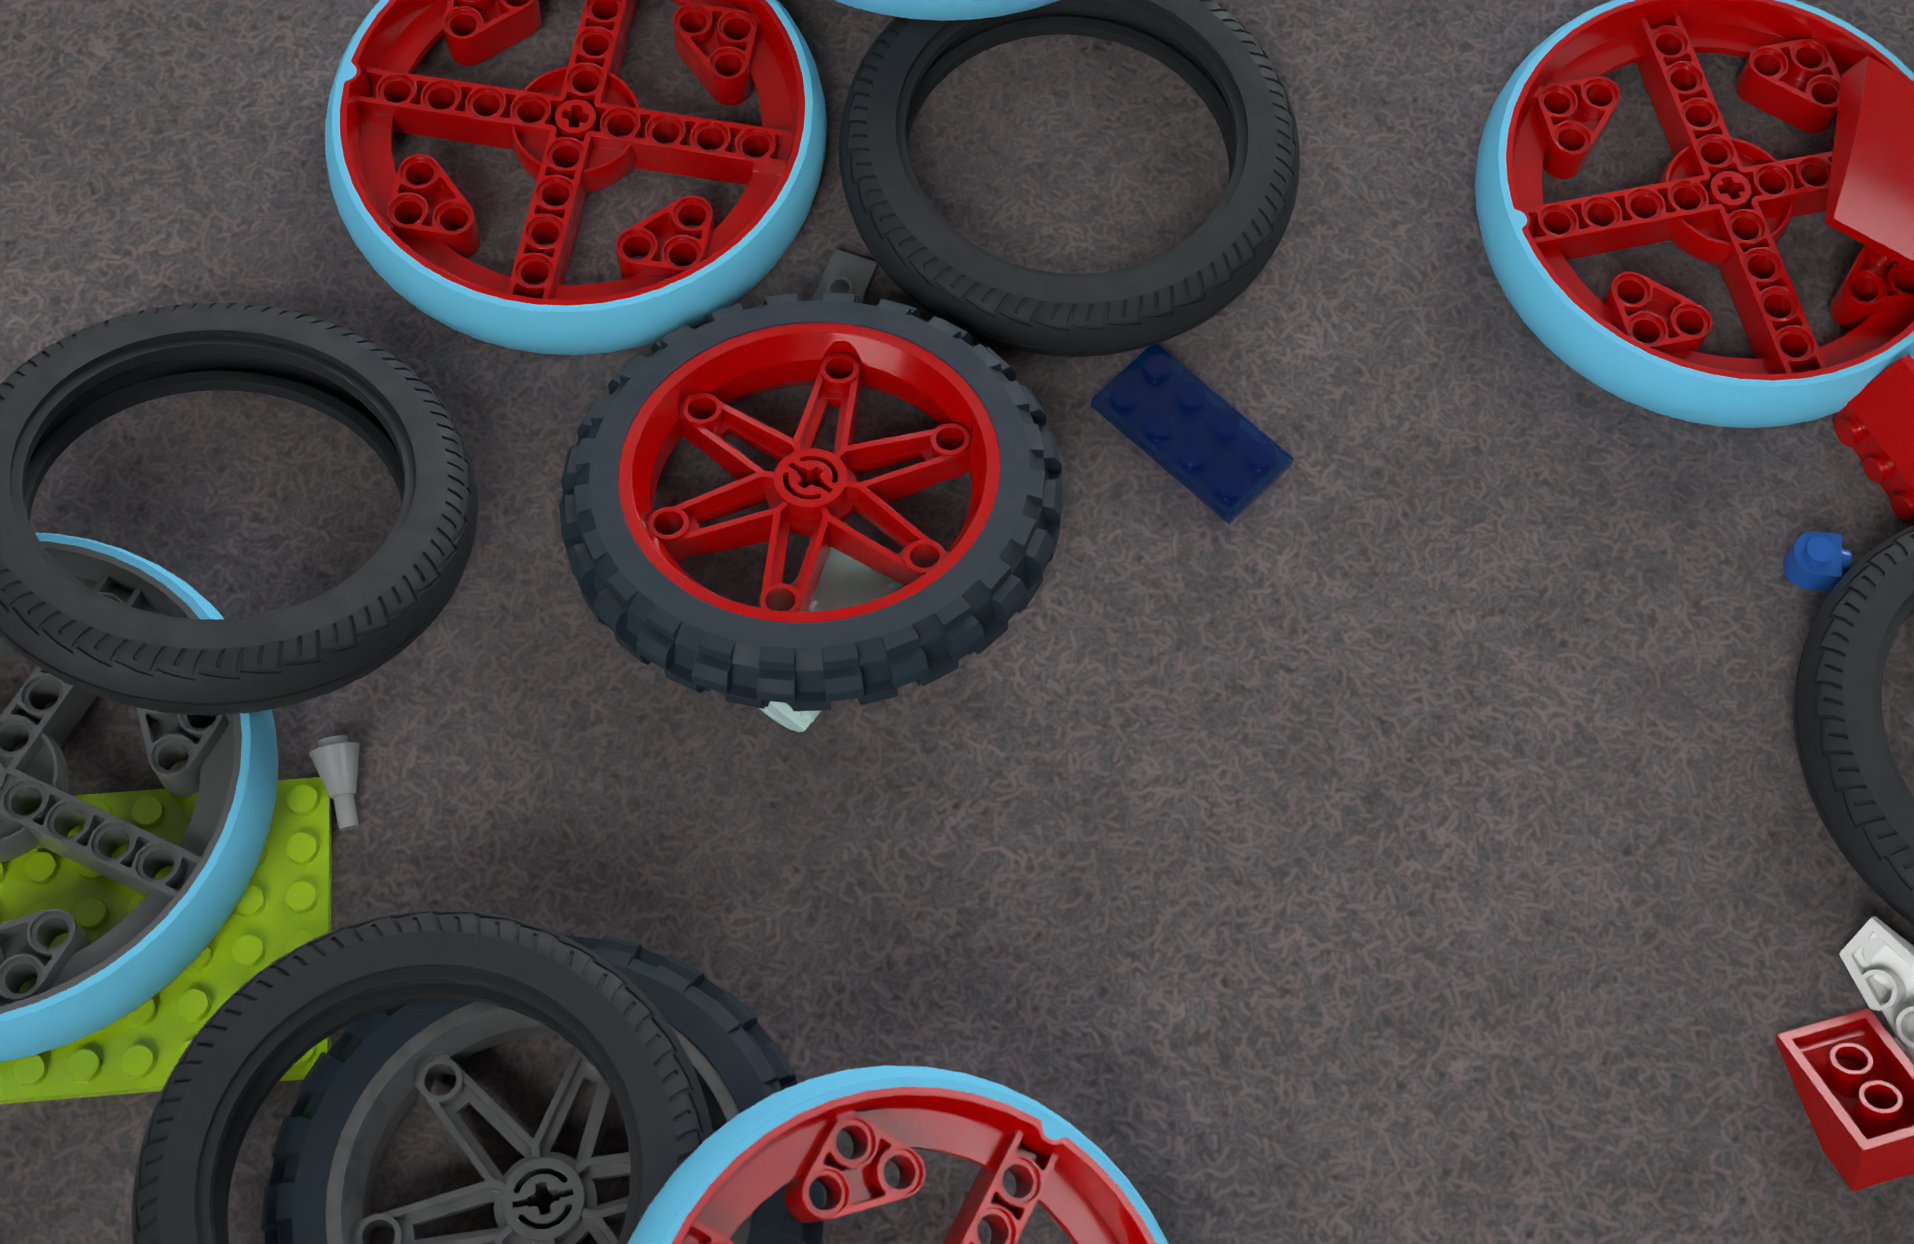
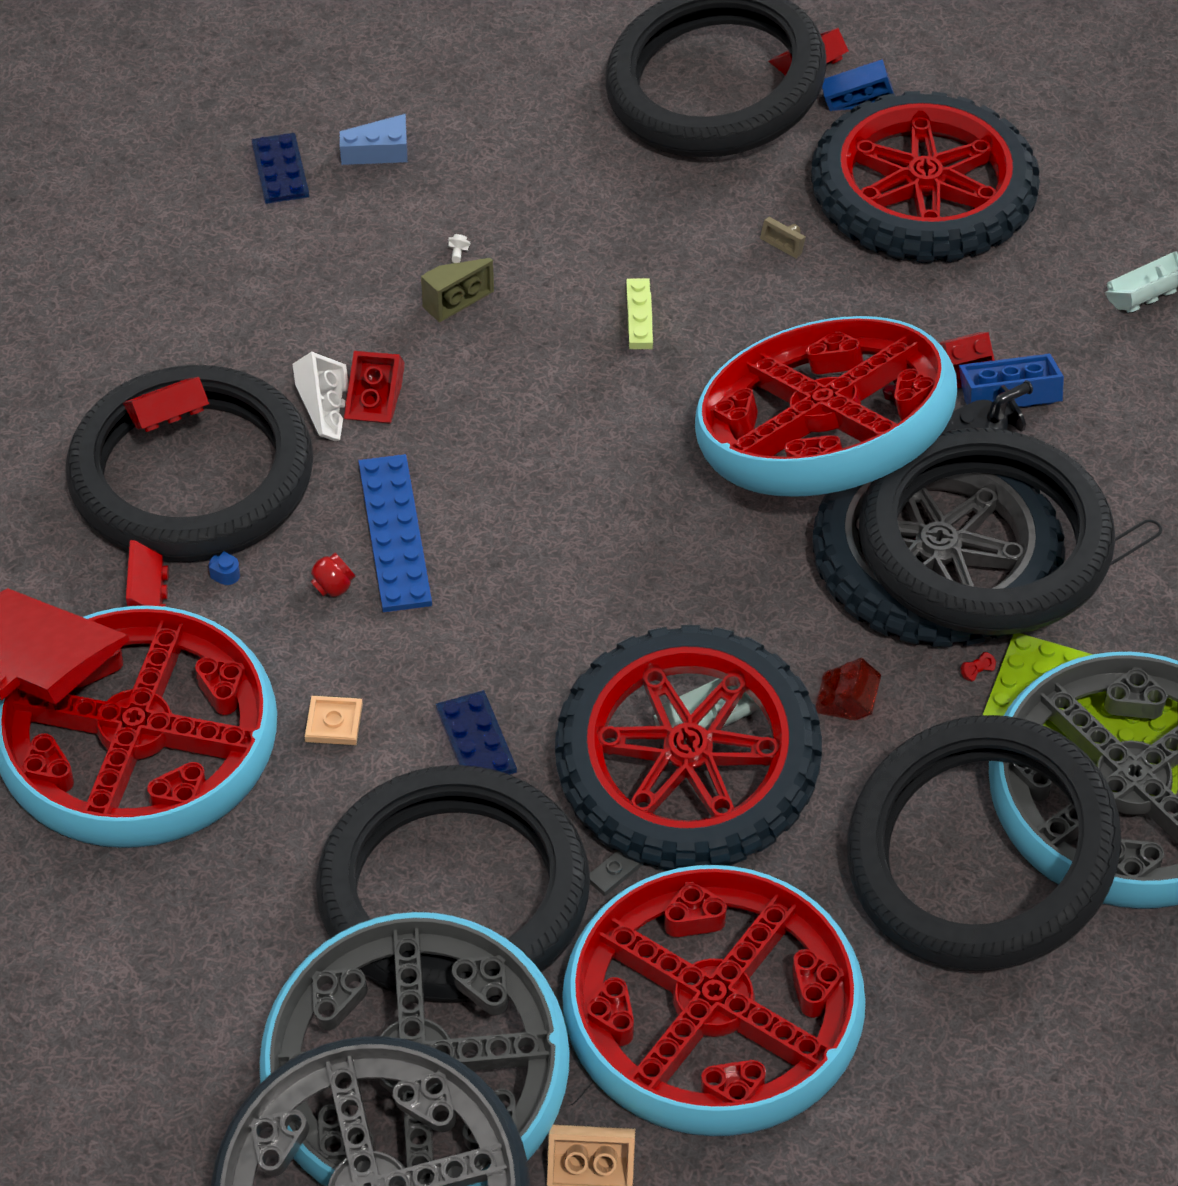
camera: 150 degrees left, 15 degrees down
(594, 784) = (849, 690): none -> clear red slope
(1435, 360) = (333, 720): none -> light nougat plate
(1597, 786) = (395, 533): none -> blue plate
(1627, 612) = (331, 576): none -> red piece

